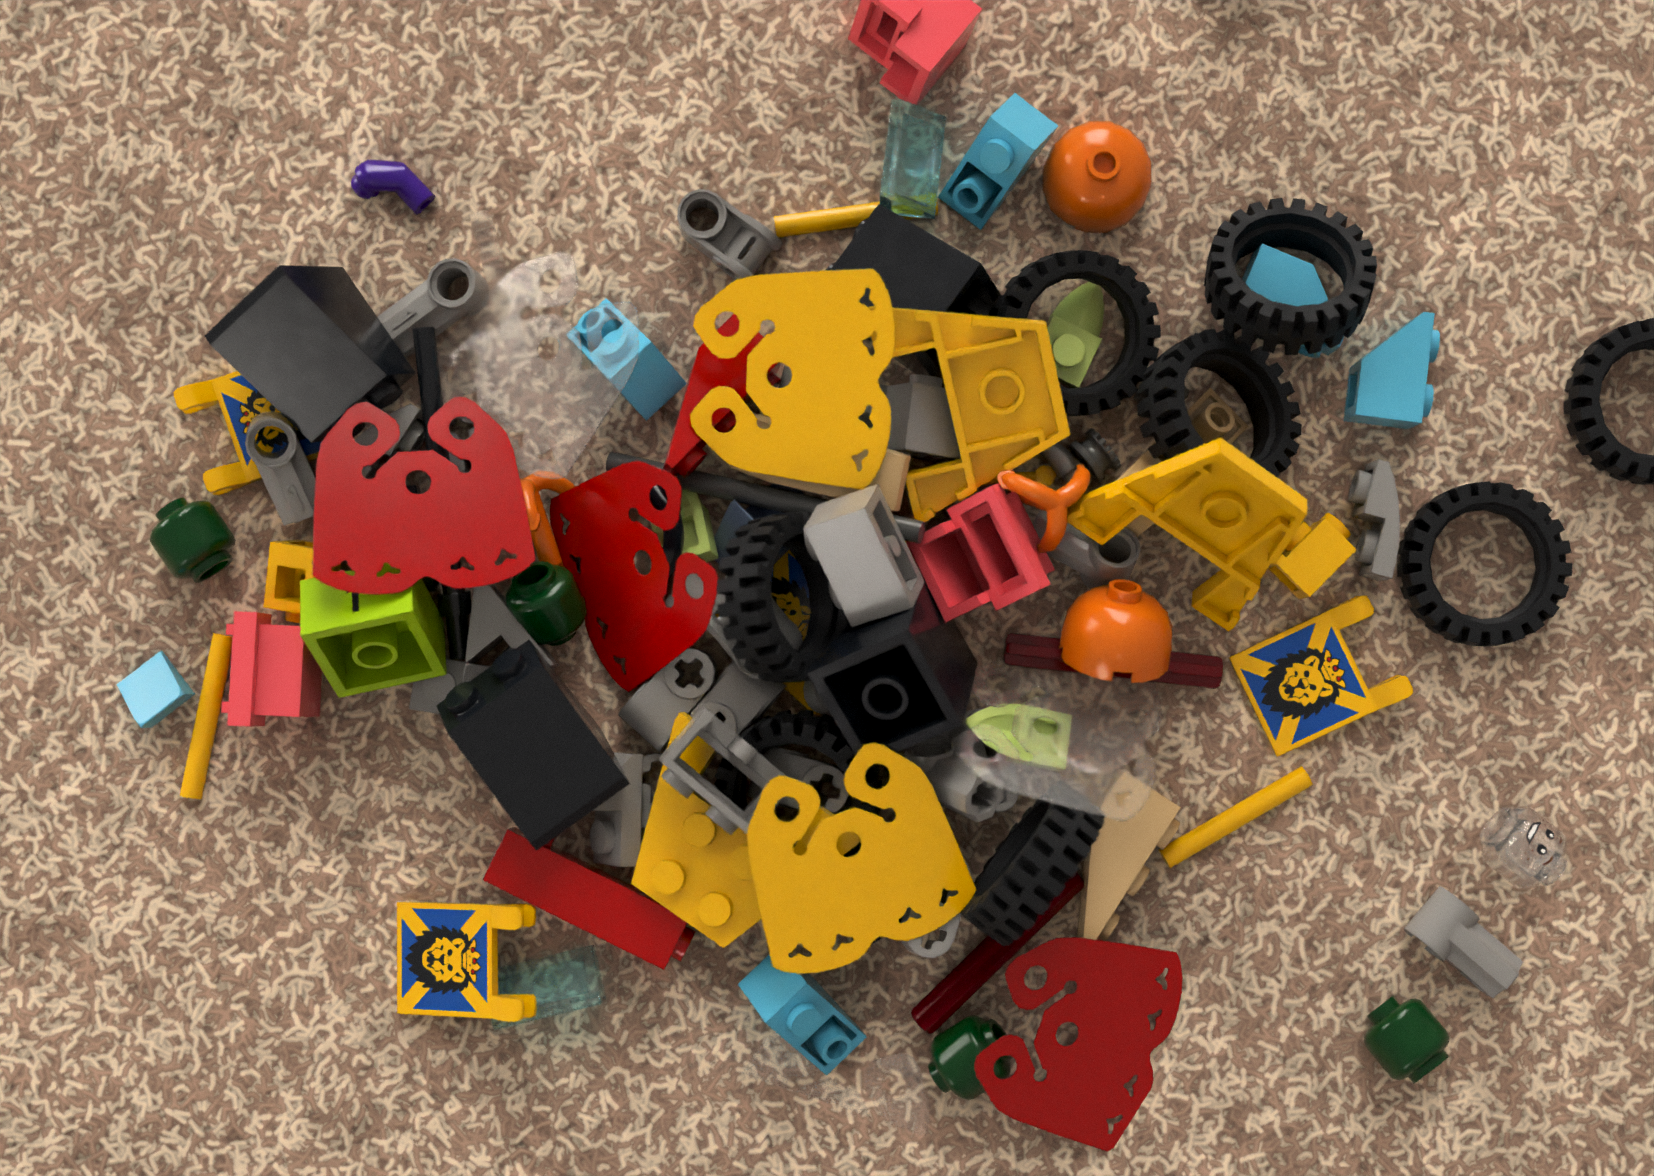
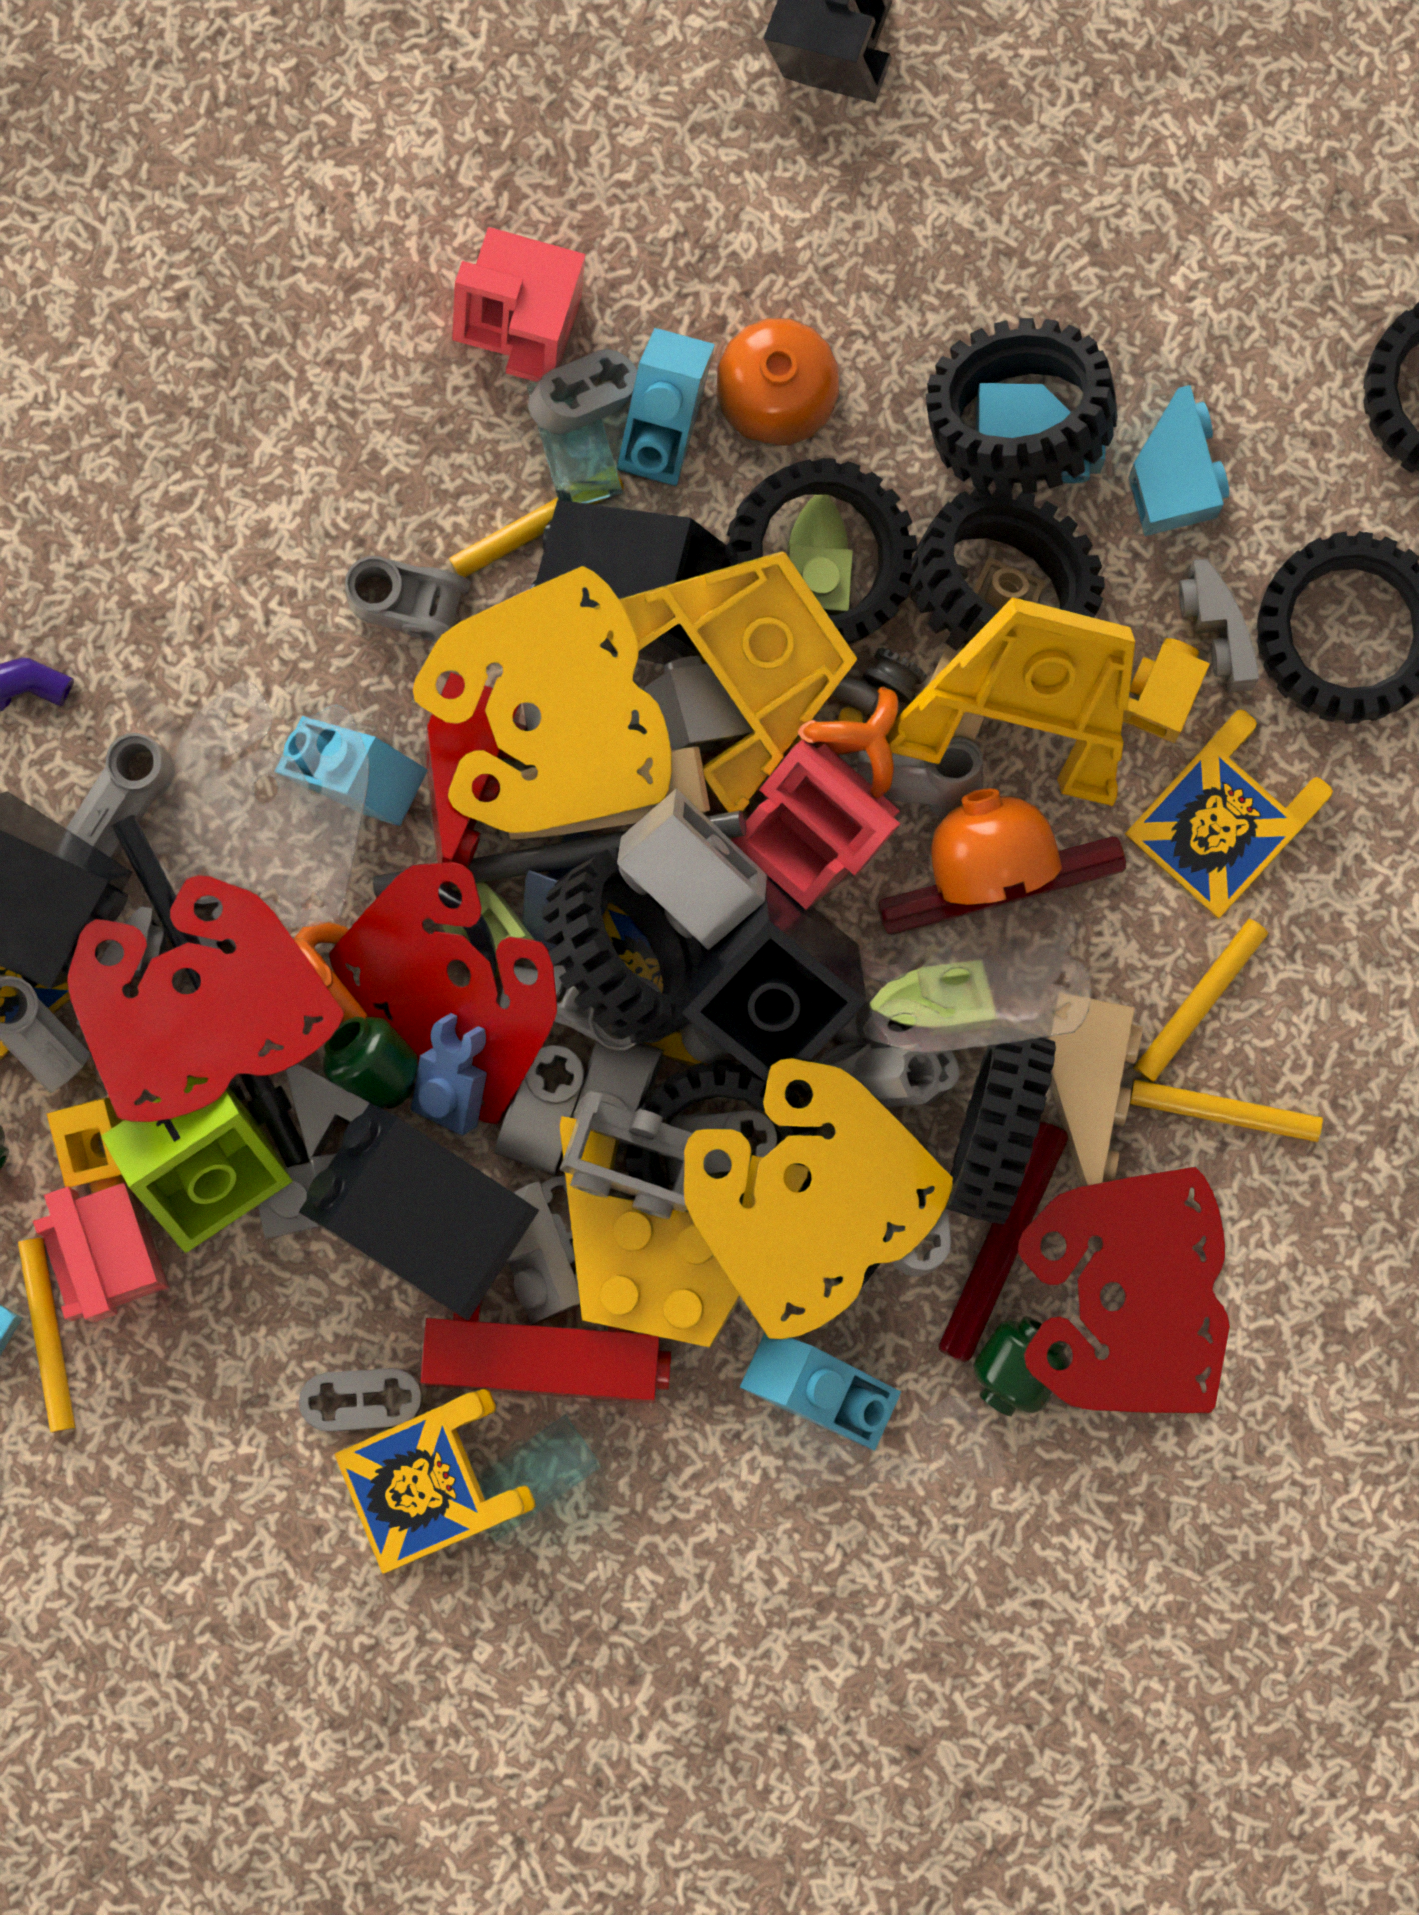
camera: 25 degrees left, 5 degrees down
(429, 881) = (360, 1383): none -> light grey beam
(602, 642) = (446, 1081): none -> medium blue plate
(934, 111) = (589, 401): none -> light grey beam
(1220, 915) = (1226, 1110): none -> yellow bar

